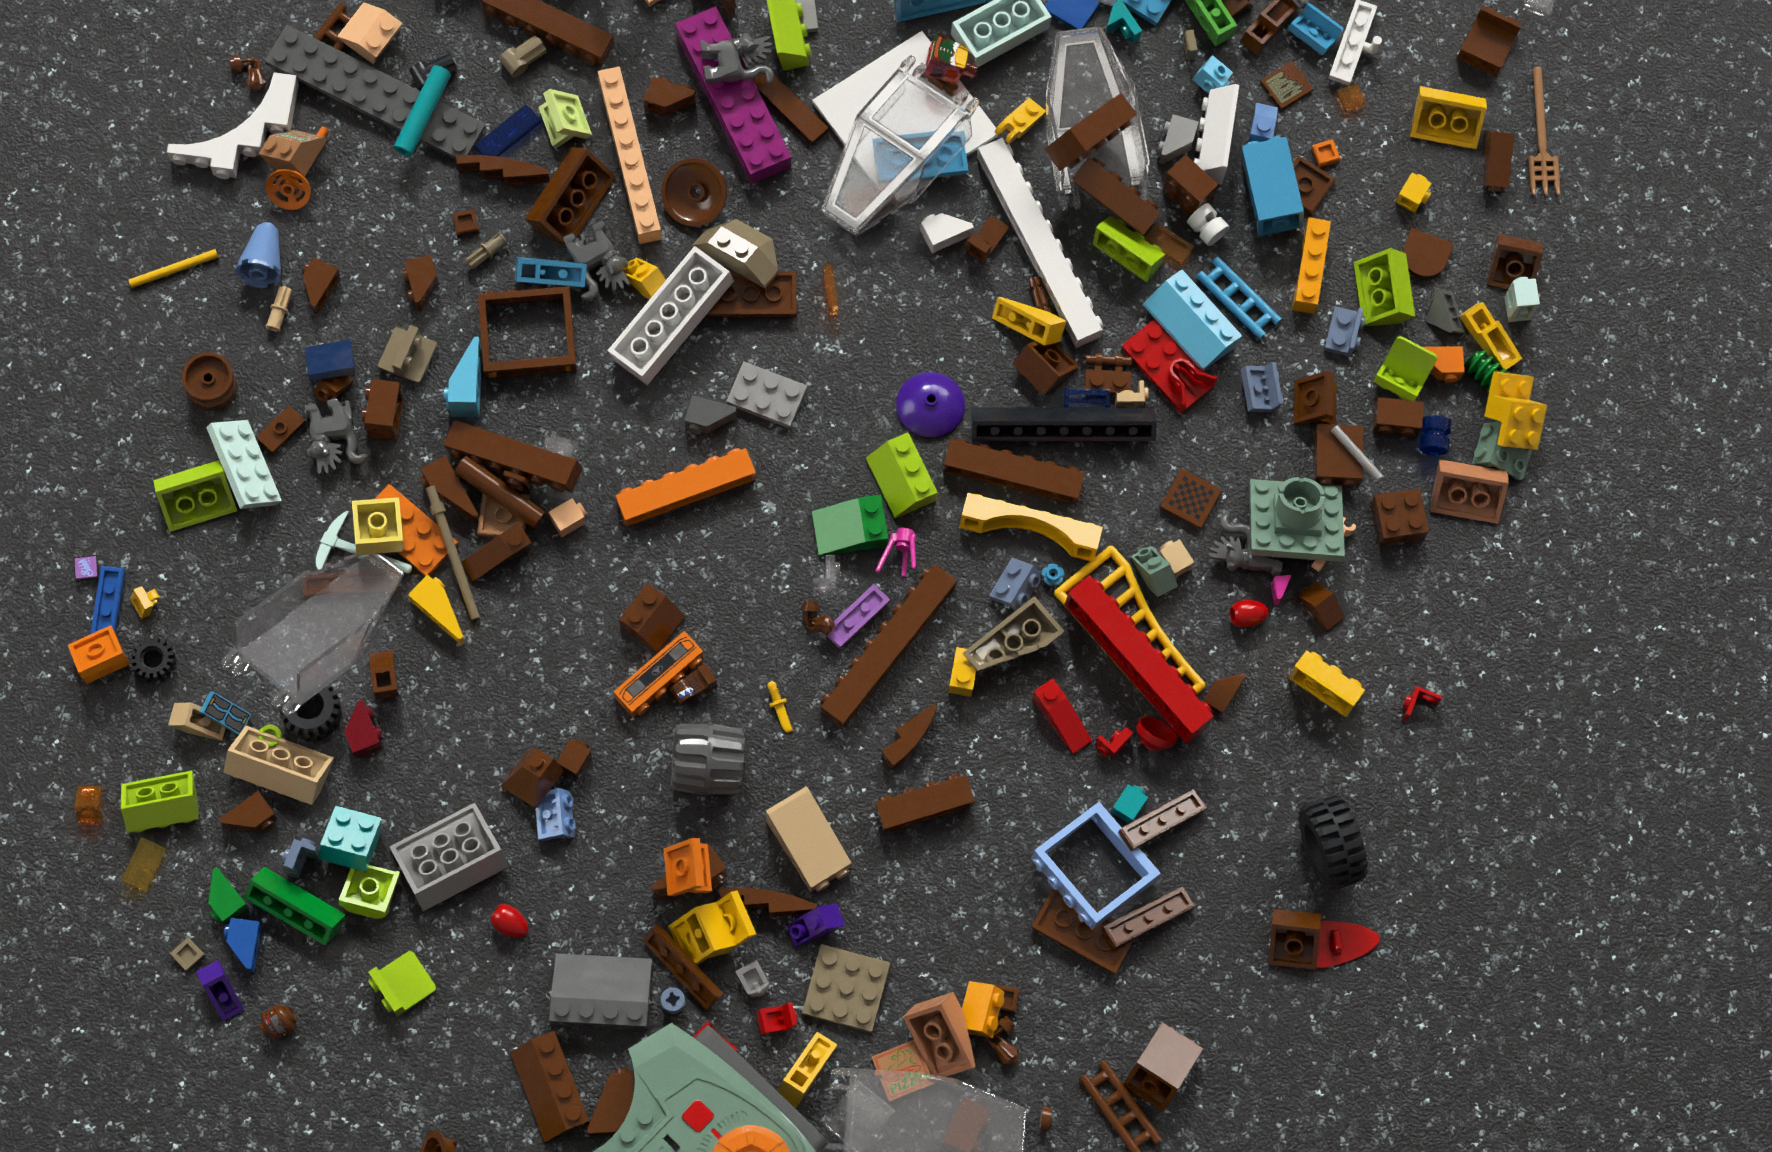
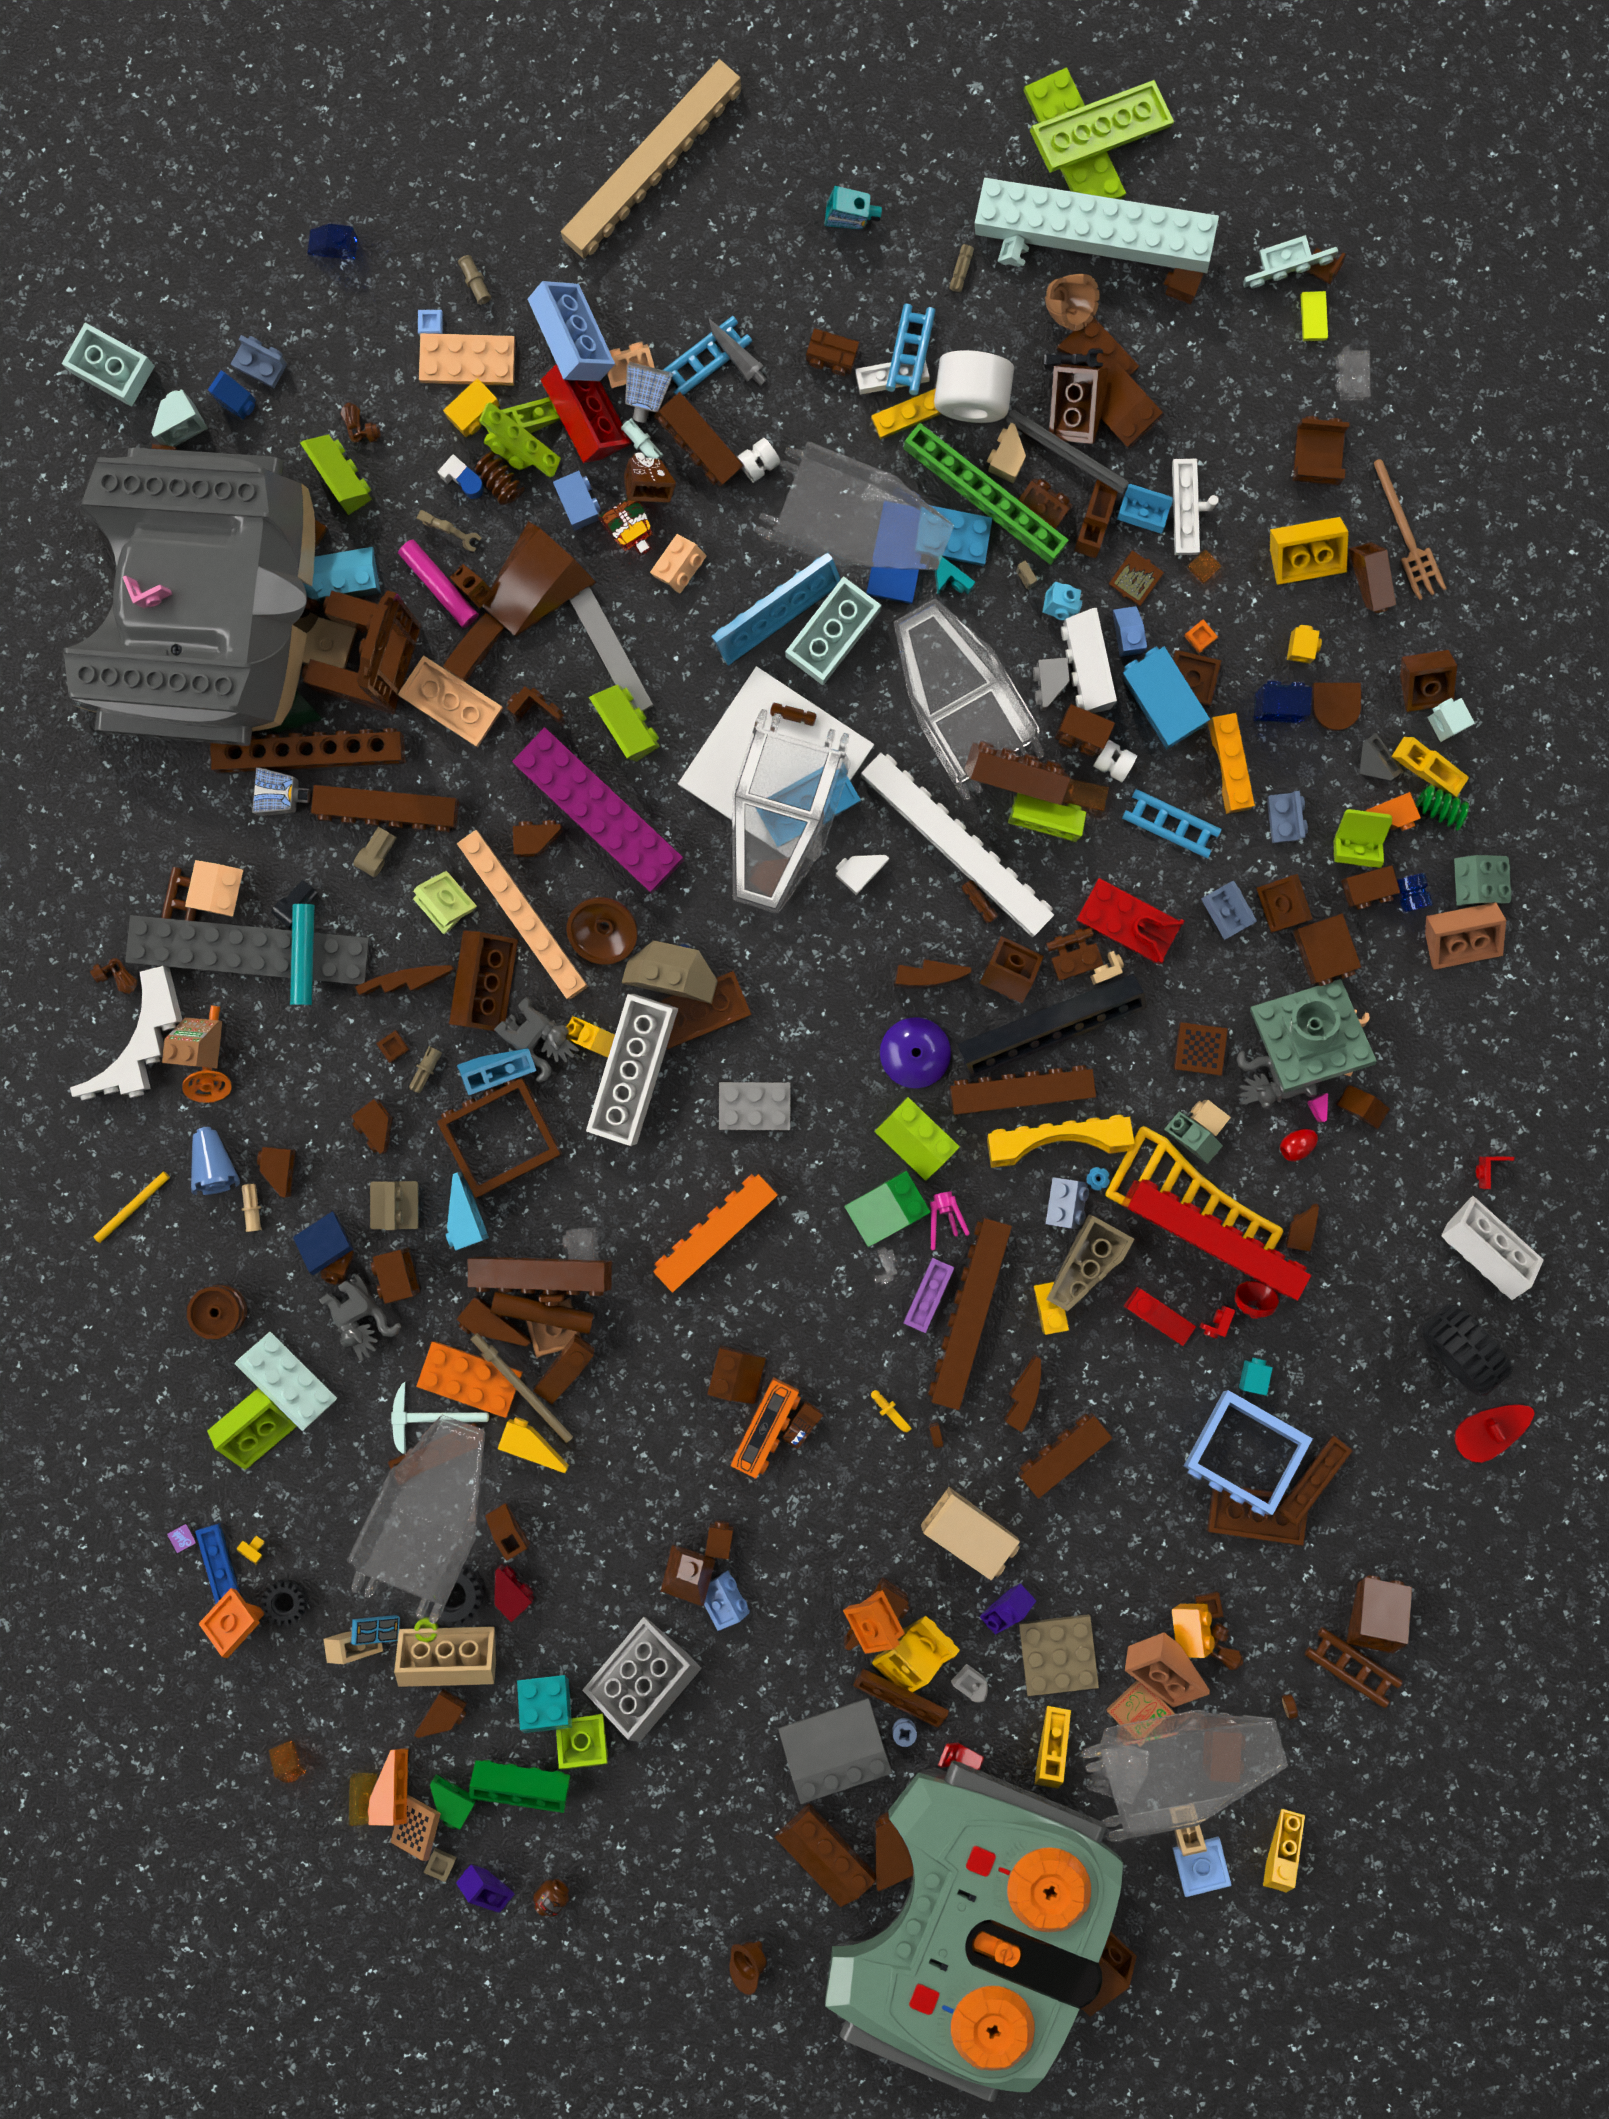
camera: 15 degrees left, 15 degrees up
(159, 802) = (350, 1735): lime slope -> none
(172, 865) = (389, 1796): none -> slope
(181, 905) = (419, 1831): none -> medium nougat tile
(244, 940) = (487, 1835): blue slope -> none
(281, 429) = (305, 1327): reddish brown plate -> none
(296, 856) = (501, 1746): sand blue bracket -> none
(377, 526) = (440, 1397): light yellow brick -> none
(402, 983) = (648, 1817): lime bracket -> none
(508, 132) = (394, 938): clear blue tile -> none
(509, 921) = (723, 1719): red animal -> none
(567, 517) = (615, 1307): light nougat brick -> none
(707, 759) = (846, 1500): dark grey wheel -> none
(708, 415) = (706, 1152): dark grey slope -> none
(729, 64) = (579, 779): dark grey animal -> none
(777, 1018) = (1007, 1711): red bracket -> none
(778, 903) = (964, 1602): reddish brown slope -> none
(791, 108) = (657, 798): reddish brown tile -> none
(812, 741) = (936, 1435): none -> reddish brown tile
(821, 624) = (901, 1318): reddish brown piece -> none
(830, 289) = (773, 975): clear orange tile -> none
(947, 60) = (795, 692): clear red torso -> none
(970, 338) = (929, 975): none -> reddish brown slope
(986, 239) = (905, 860): reddish brown bracket -> none
(1021, 120) = (891, 723): yellow hinge -> none
(1029, 321) = (980, 932): yellow slope -> none
(1067, 400) = (1064, 986): clear blue tile -> none
(1091, 133) = (970, 720): reddish brown brick -> none
(1162, 820) = (1293, 1383): tile -> none
(1192, 320) = (1137, 868): medium azure slope -> none
(1294, 939) = (1457, 1445): reddish brown slope -> none
(1326, 683) = (1399, 1184): yellow slope -> none
(1357, 454) = (1347, 945): light grey bar -> none
(1375, 228) = (1282, 702): none -> clear blue brick
(1384, 288) = (1310, 758): lime slope -> none
(1393, 773) = (1493, 1248): none -> white slope
(1399, 517) = (1408, 990): reddish brown brick -> none
(1510, 404) = (1485, 840): yellow bracket -> none

